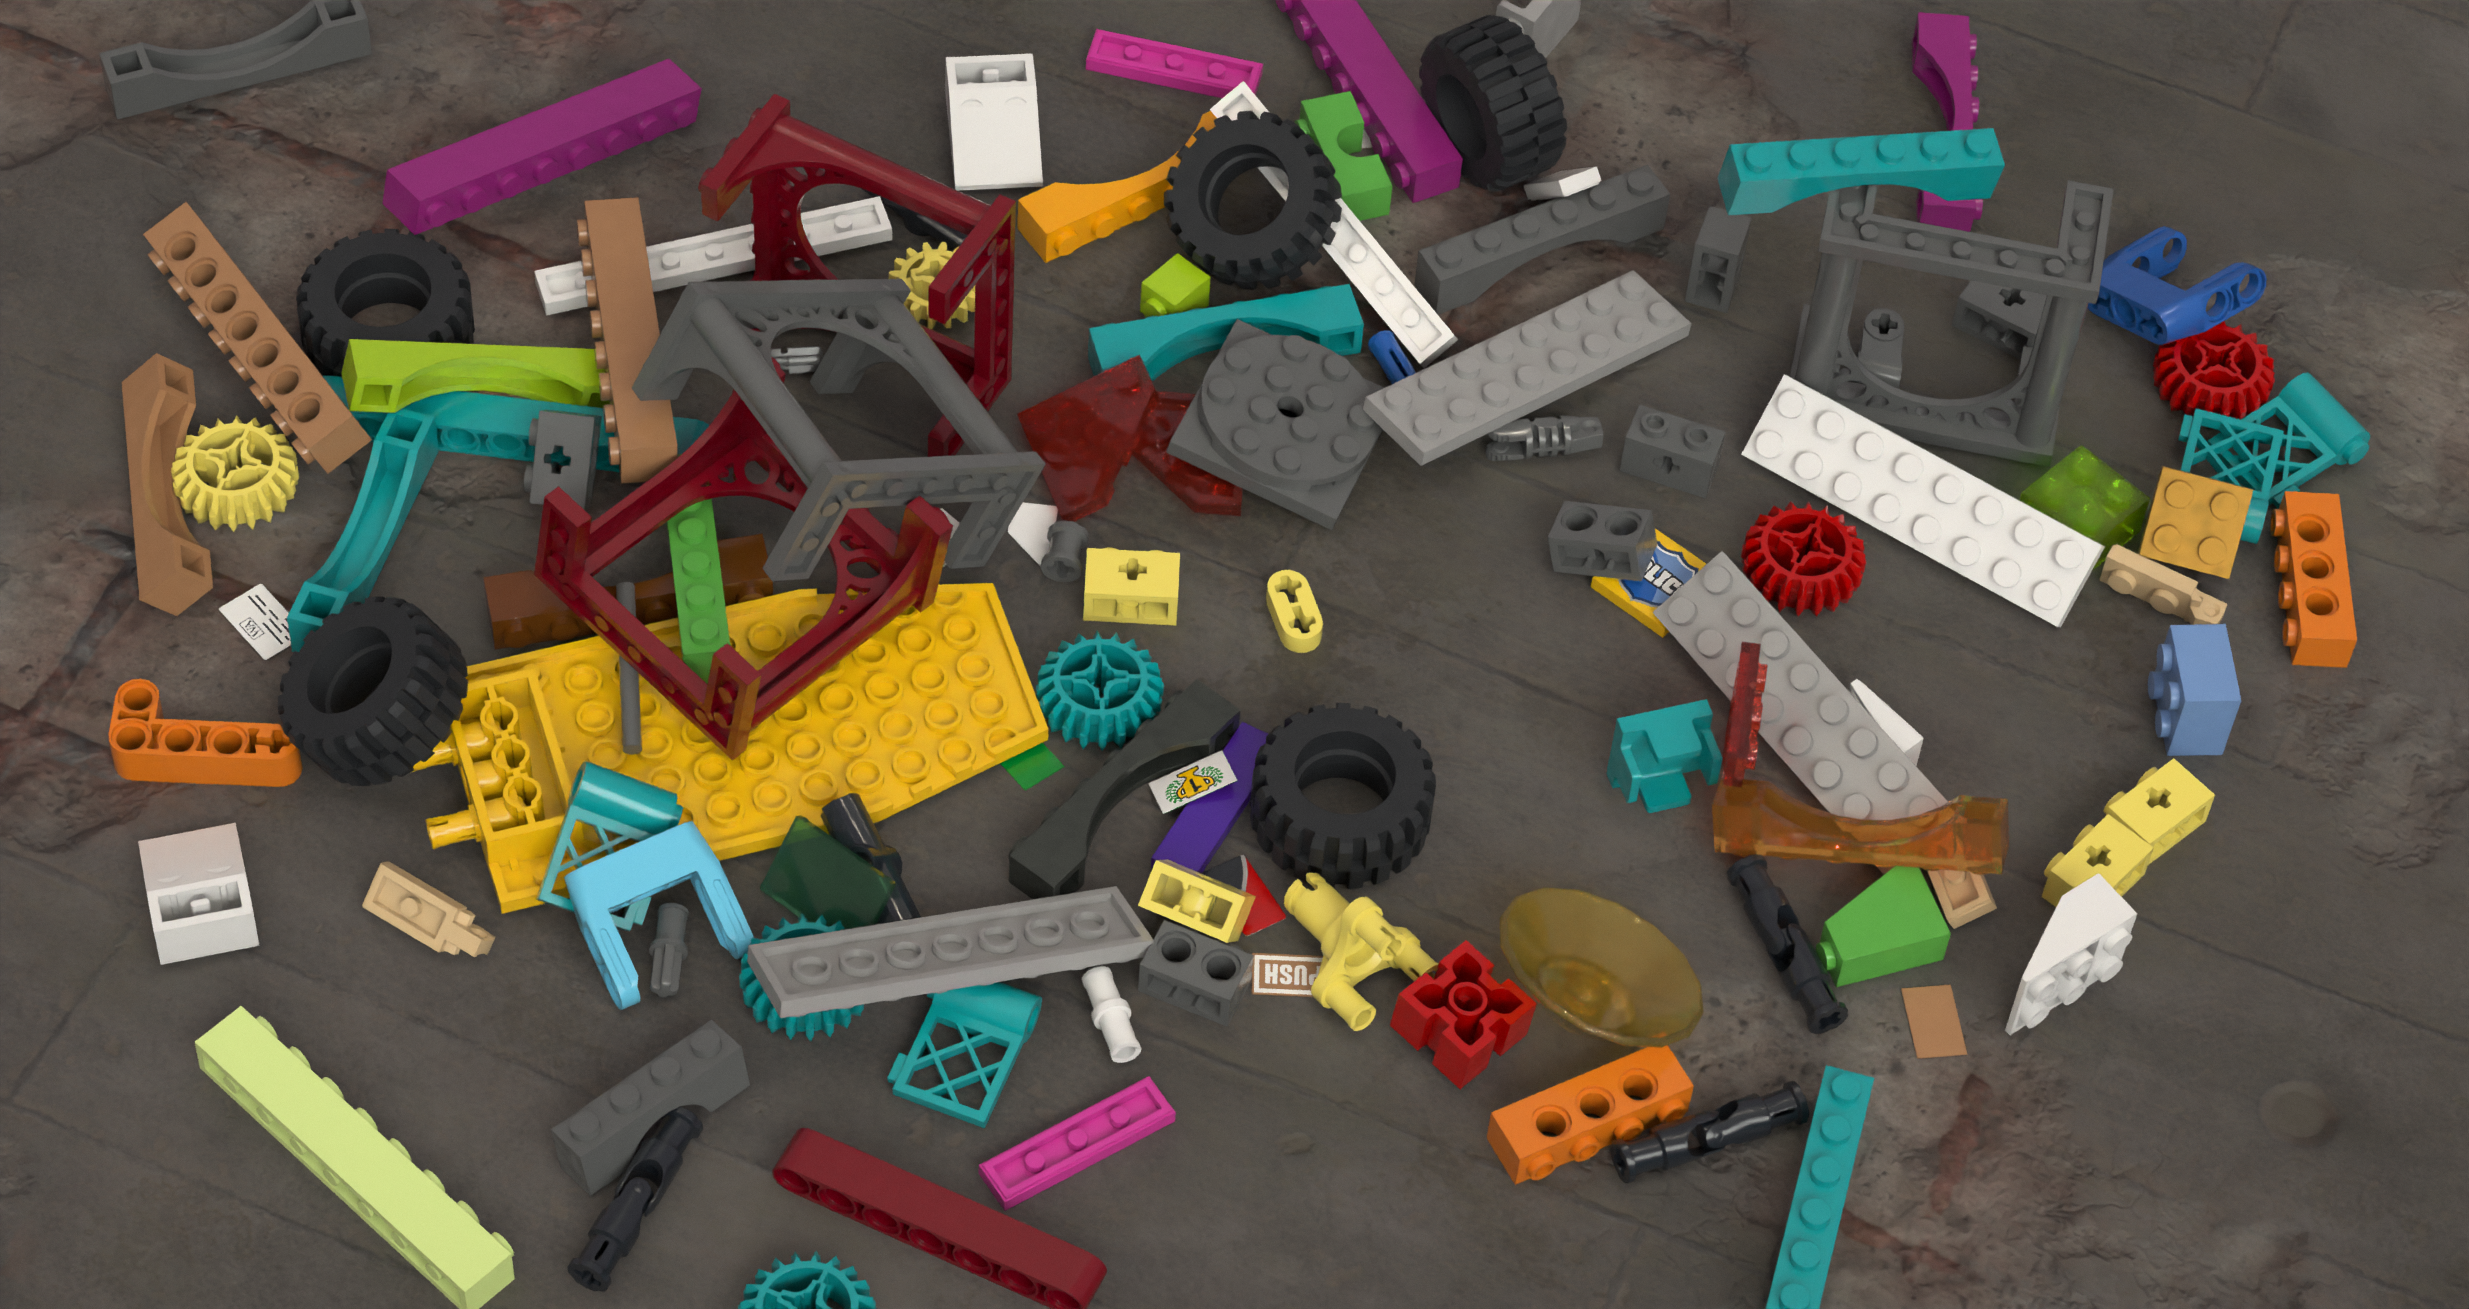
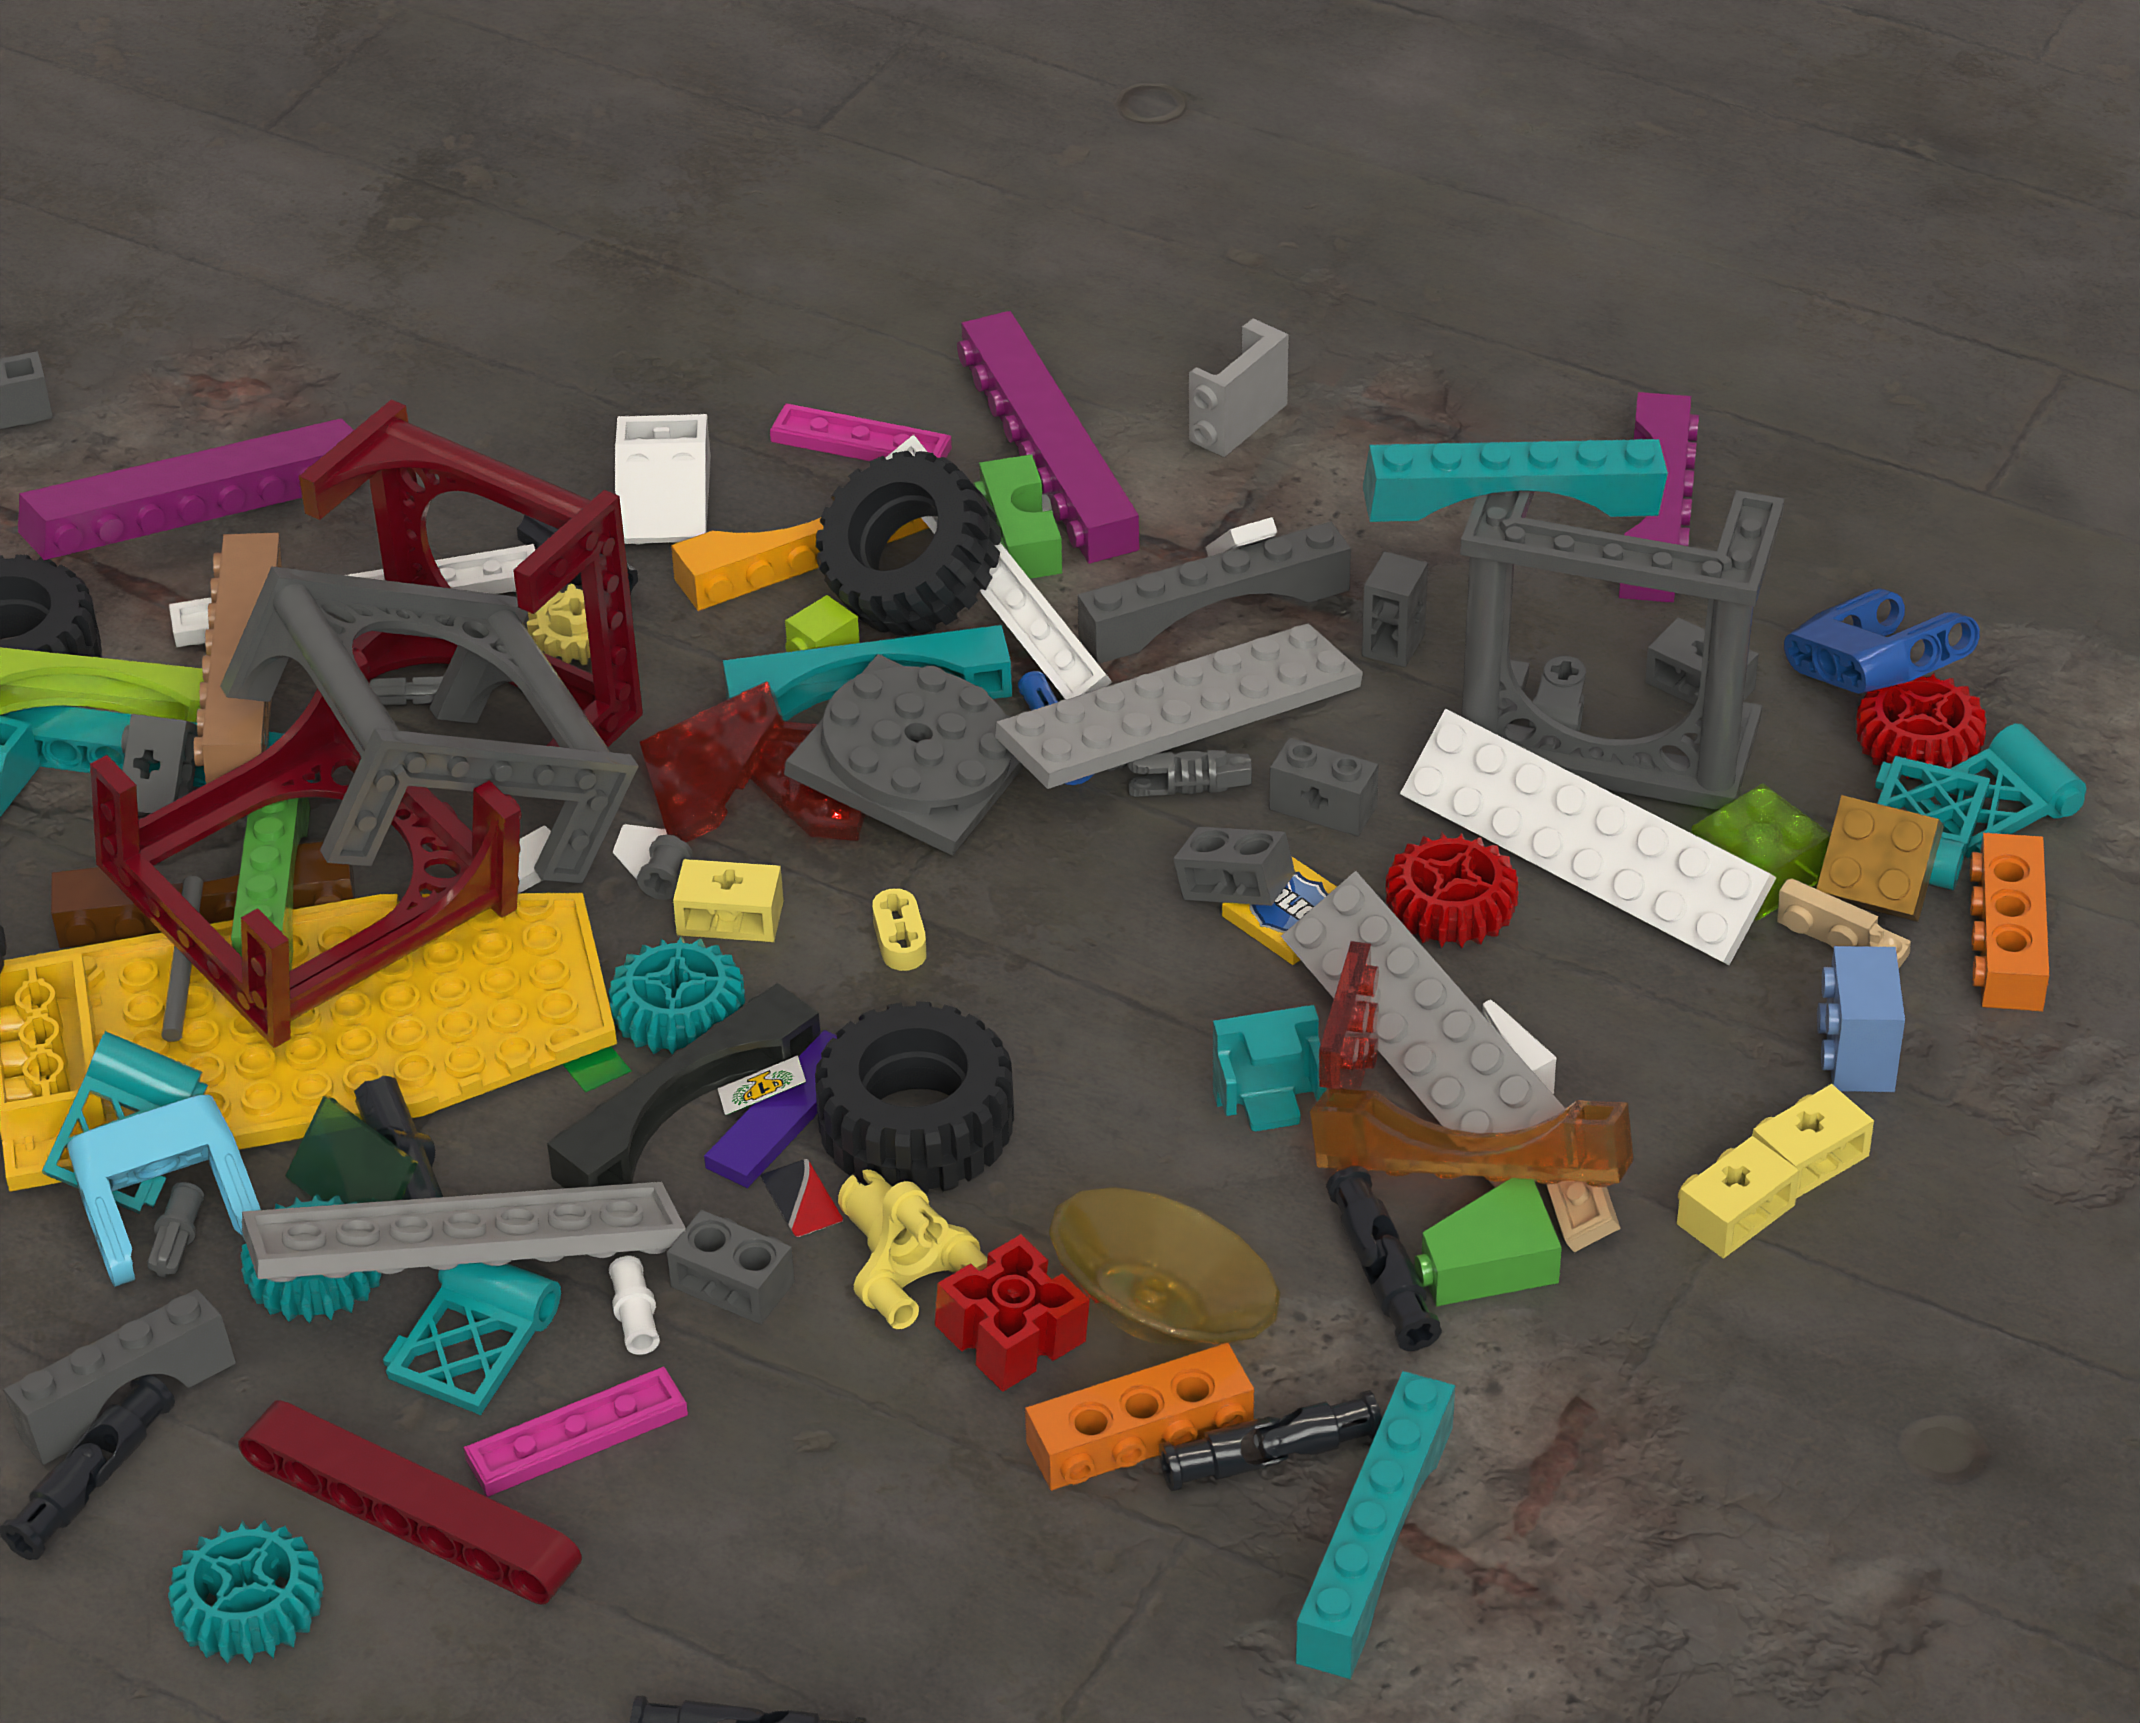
camera: 10 degrees right, 10 degrees down
(1196, 900) = (741, 1194): light yellow brick -> none
(1284, 974) = (827, 1275): sticker -> none
(1494, 101) = (1172, 457): black tyre -> none
(1934, 1021) = (1540, 1343): medium nougat sticker -> none
(2076, 949) = (1693, 1270): white slope -> none

